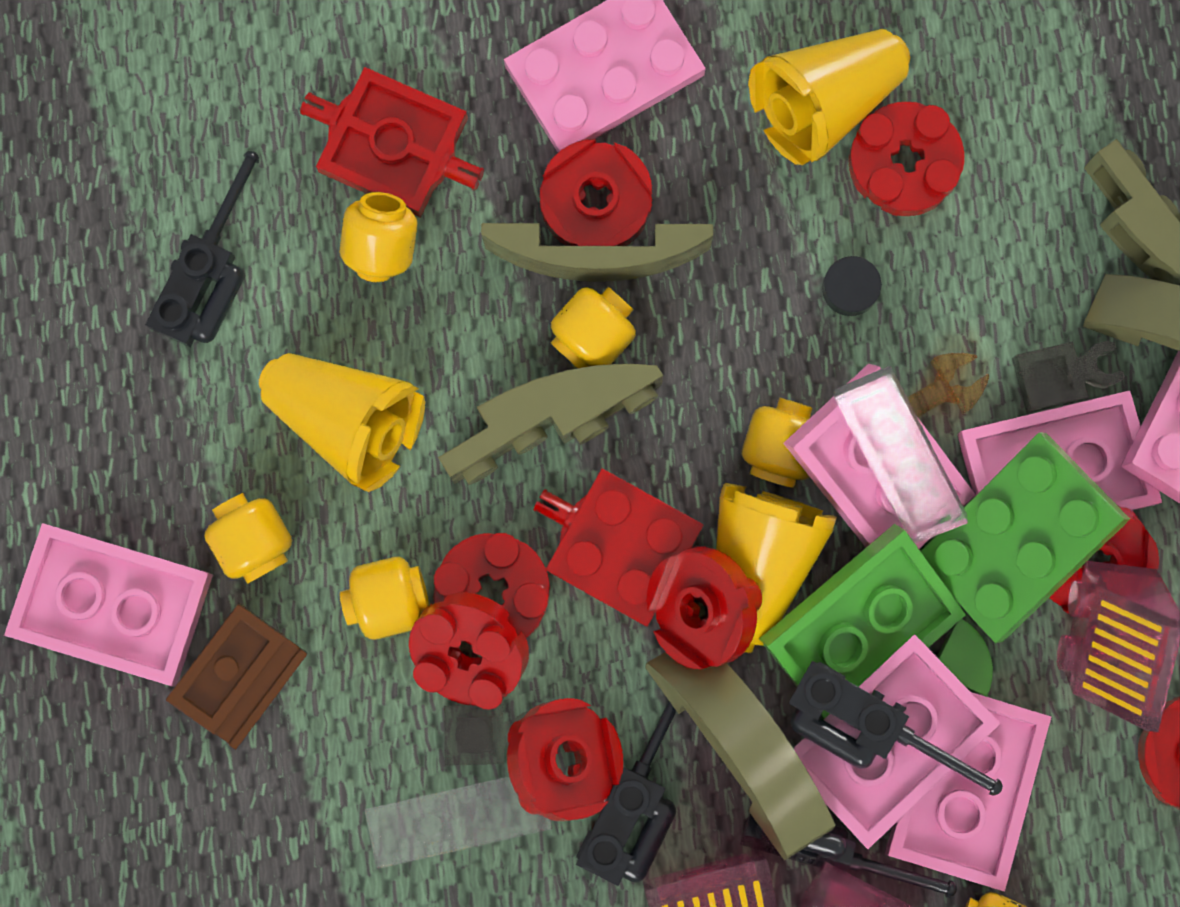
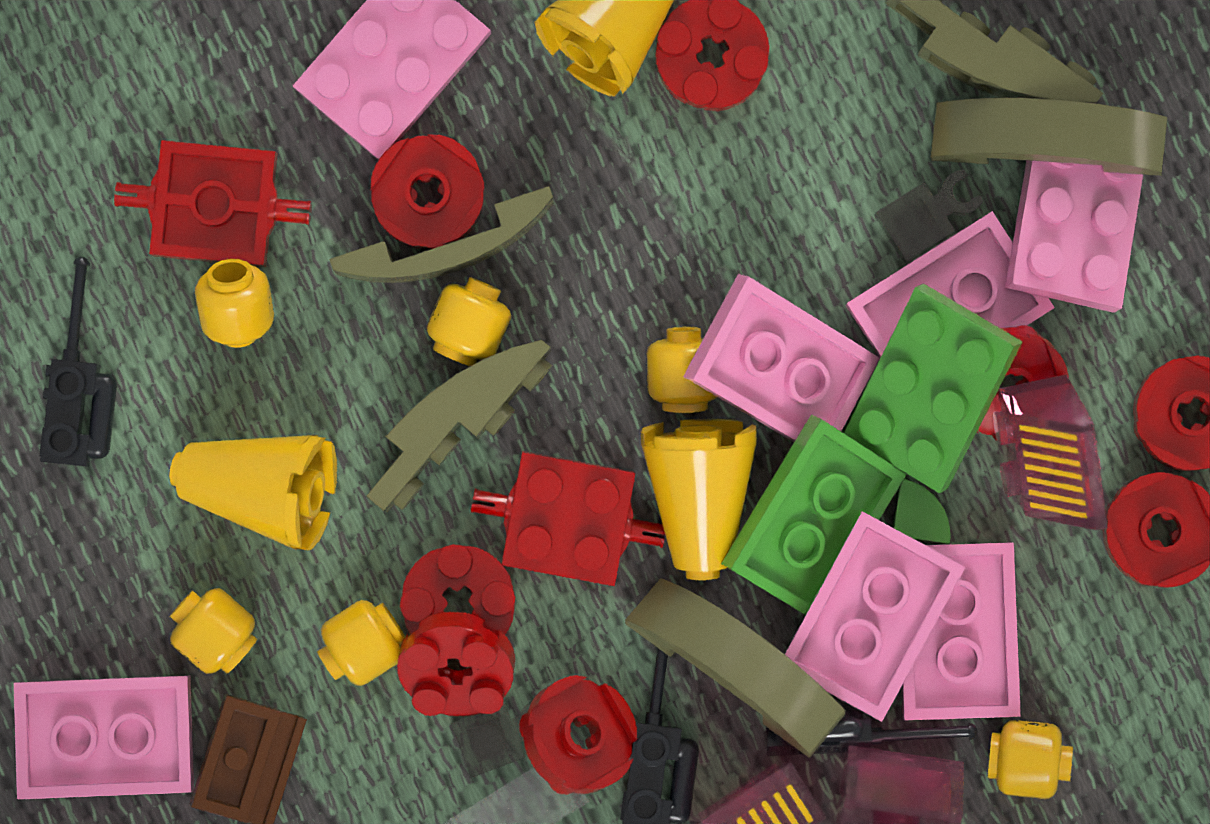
camera: 20 degrees left, 5 degrees up
(730, 603) = (681, 538): red plate -> none
(851, 286) = (700, 195): black tile -> none
(878, 722) = (852, 603): black piece -> none
(900, 455) = (795, 352): clear plate -> none
(940, 389) = (815, 268): clear orange bar -> none

